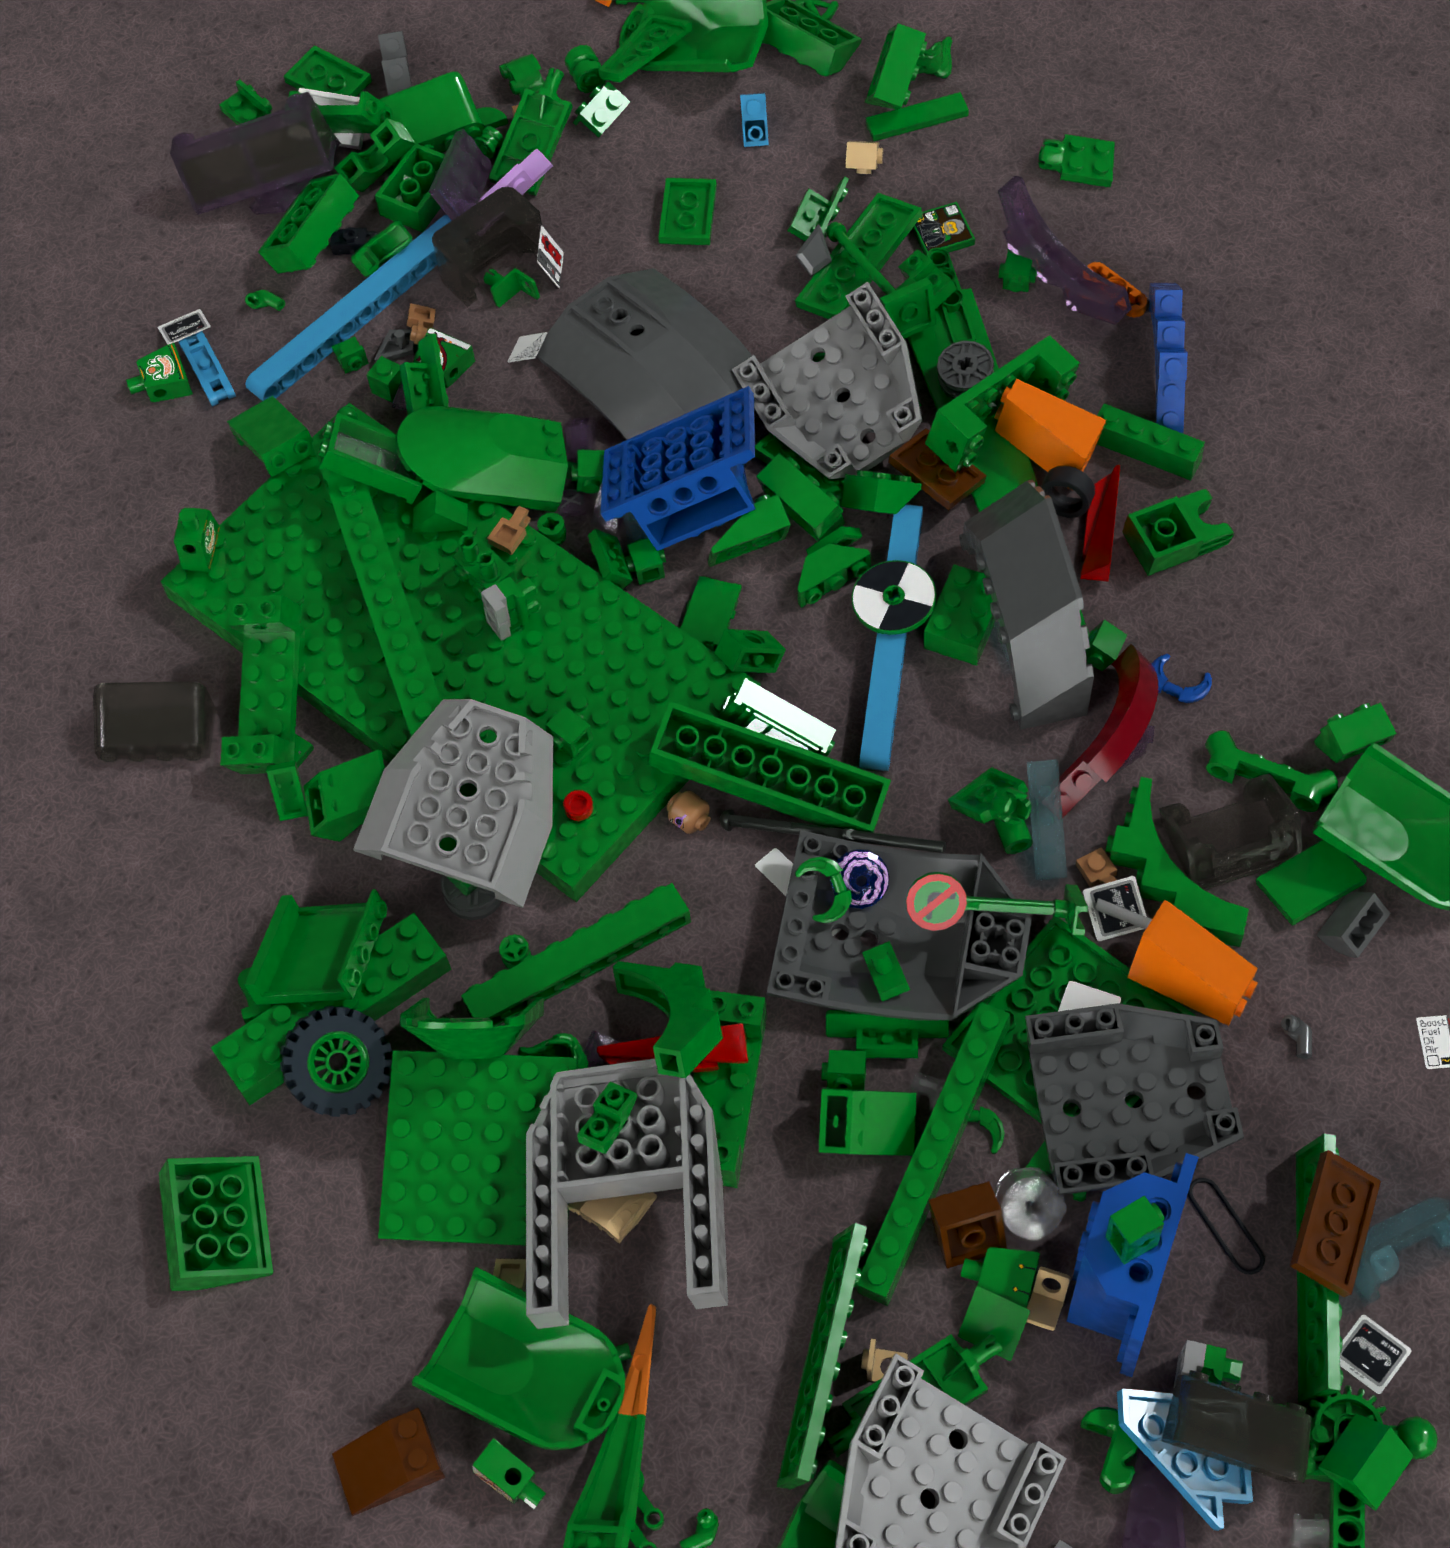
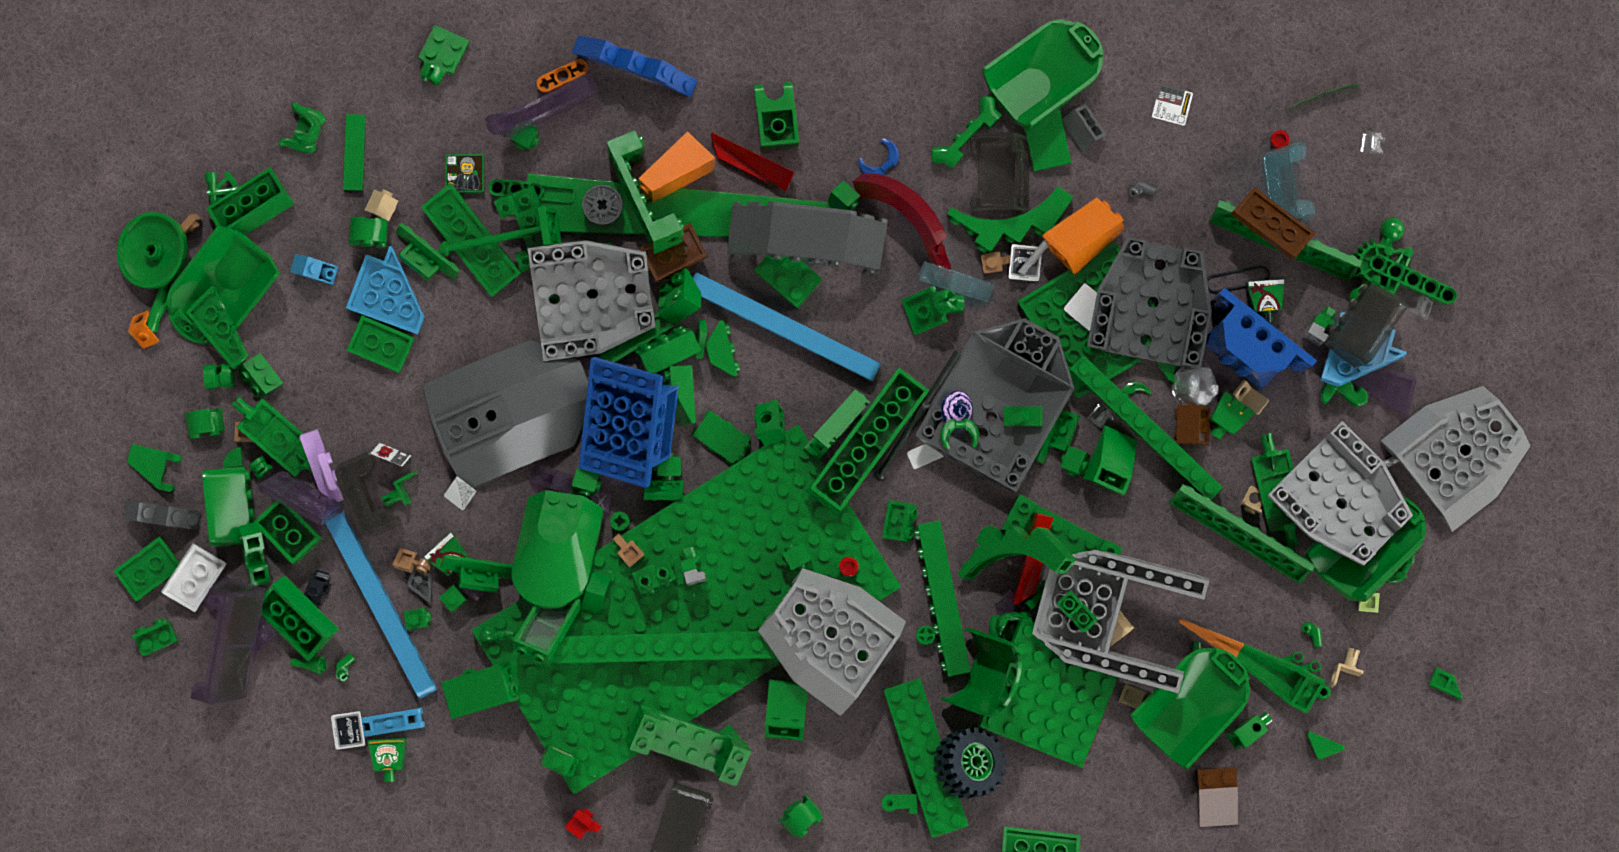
camera: 75 degrees left, 25 degrees up
(126, 611) = (582, 823): none -> red brick
(200, 866) = (800, 816): none -> green brick
(258, 269) = (316, 664): none -> green cone
(287, 790) = (764, 747): green tile -> none
(315, 951) = (890, 756): green panel -> none
(355, 118) = (196, 593): green panel -> none
(381, 248) = (335, 573): green animal -> none
(456, 44) = (152, 464): none -> green flag
(671, 864) = (900, 521): none -> green bracket
(688, 812) = (866, 498): medium nougat head -> none
(754, 197) = (386, 294): none -> dark azure wing
(814, 252) = (460, 270): dark grey piece -> none
(822, 148) = (368, 232): none -> green brick
(896, 67) = (320, 155): green slope -> none
(903, 613) = (779, 316): piece -> none
(940, 901) = (1000, 366): green piece -> none
(994, 1315) = (1250, 431): green sticker -> none
(1075, 480) = (722, 175): black tyre -> none
(1135, 1229) = (1262, 341): green brick -> none
(1150, 442) = (699, 106): green brick -> none
(1216, 1272) = (1266, 296): none -> torso
(1353, 733) = (965, 72): green slope -> none
(1367, 1460) = (1399, 263): green slope -> none
(1372, 1354) = (1336, 230): sticker -> none

